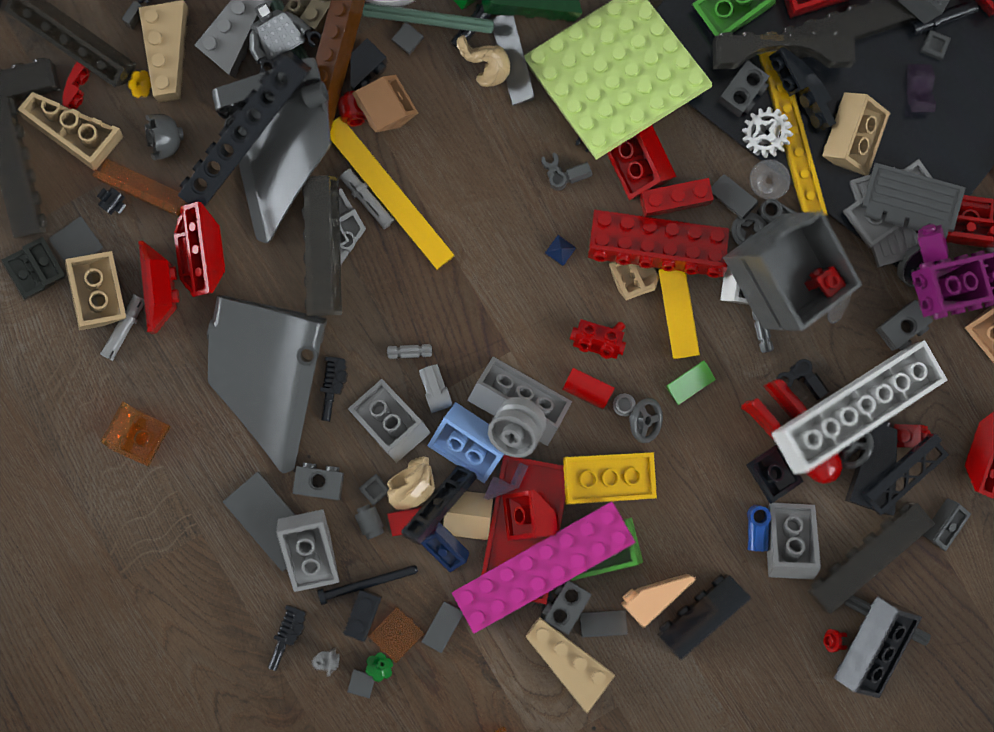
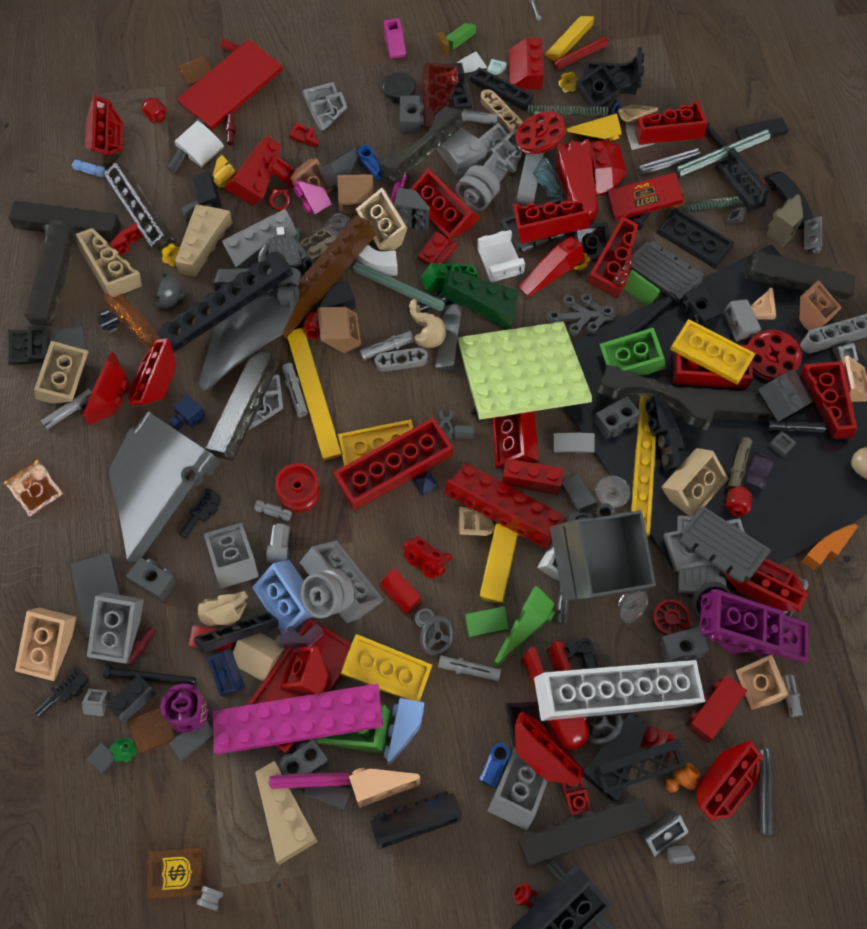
camera: 25 degrees right, 20 degrees down
(241, 594) = (44, 642): none -> light nougat slope
(261, 276) = (188, 412): none -> dark blue brick
(325, 631) = (95, 702): none -> light grey slope
(327, 661) = (84, 723): light grey hinge -> none
(341, 555) = (140, 645): none -> dark red bar
(369, 521) = (175, 626): dark grey brick -> none
(374, 489) = (191, 603): dark grey tile -> none
(407, 38) = (378, 296): dark grey tile -> none
(423, 603) = (184, 708): none -> magenta brick
(427, 331) = (298, 487): none -> red wheel
(453, 93) = (389, 344): none -> light grey pin
(469, 119) = (386, 356): none -> light grey beam
(489, 226) = (362, 441): none -> yellow tile
(519, 246) = (393, 464): none -> red brick
(583, 622) = (309, 780): none -> dark pink axle
(653, 525) = (407, 723): none -> light blue slope
(665, 443) = (469, 668): none -> light grey pin
(706, 137) = (574, 442): none -> light grey slope
(737, 359) = (532, 618): none -> bright green wedge
(759, 138) = (623, 454): white gear -> none
(806, 499) = (544, 752): none -> red wedge
(827, 279) = (629, 575): red bracket -> none
(845, 520) = (576, 798): none -> red slope
(880, 297) = (671, 616): none -> red wheel
(897, 96) = (738, 471): none -> dark tan pin
(911, 138) = (739, 501): none -> red head
(932, 243) = (728, 579): magenta brick -> none
(952, 464) = (683, 776): none -> orange animal
(961, 375) = (716, 708): none -> red brick
(970, 540) = (680, 854): none -> light grey slope

